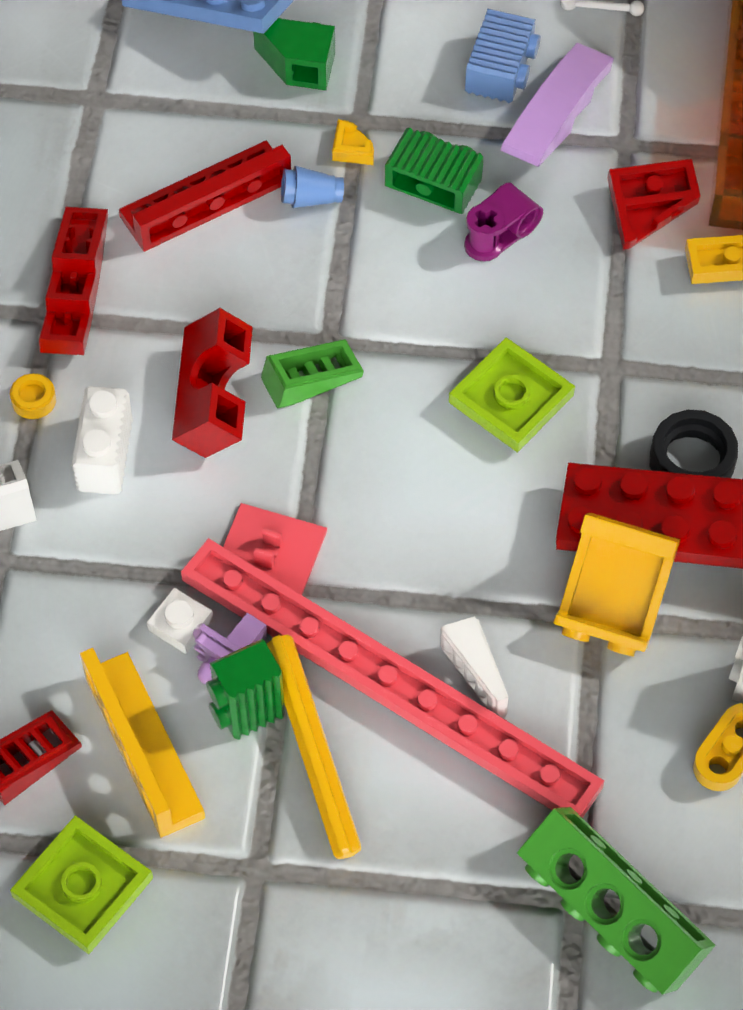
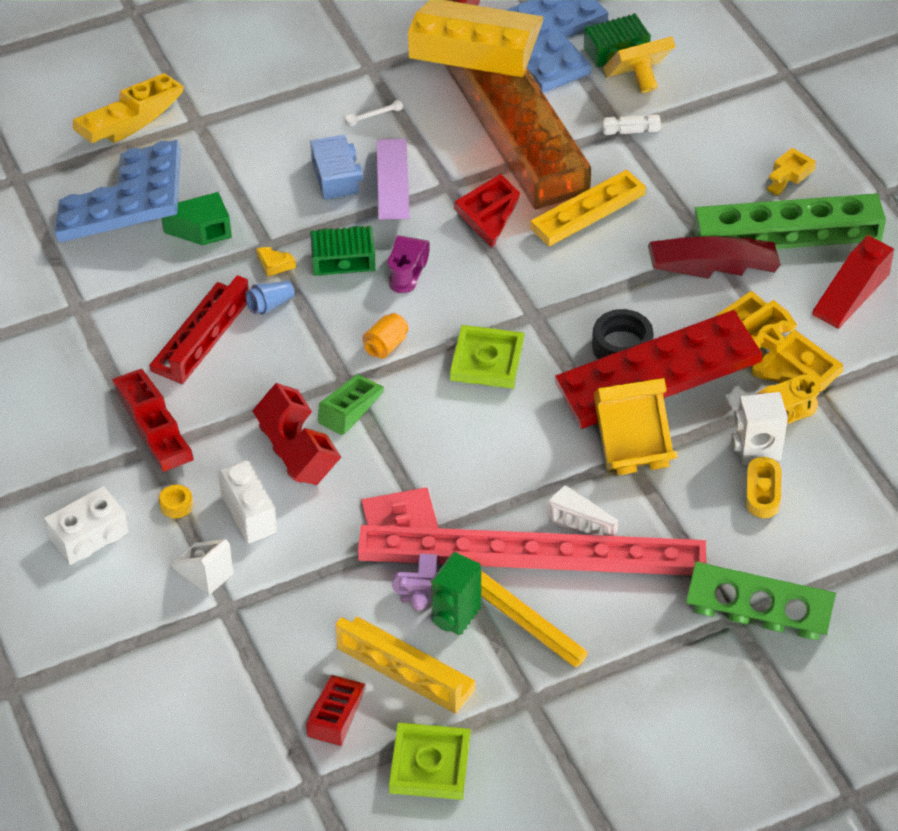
camera: 30 degrees left, 10 degrees down
(177, 619) = (374, 584): white plate -> none
(407, 306) = (385, 335): none -> light orange brick

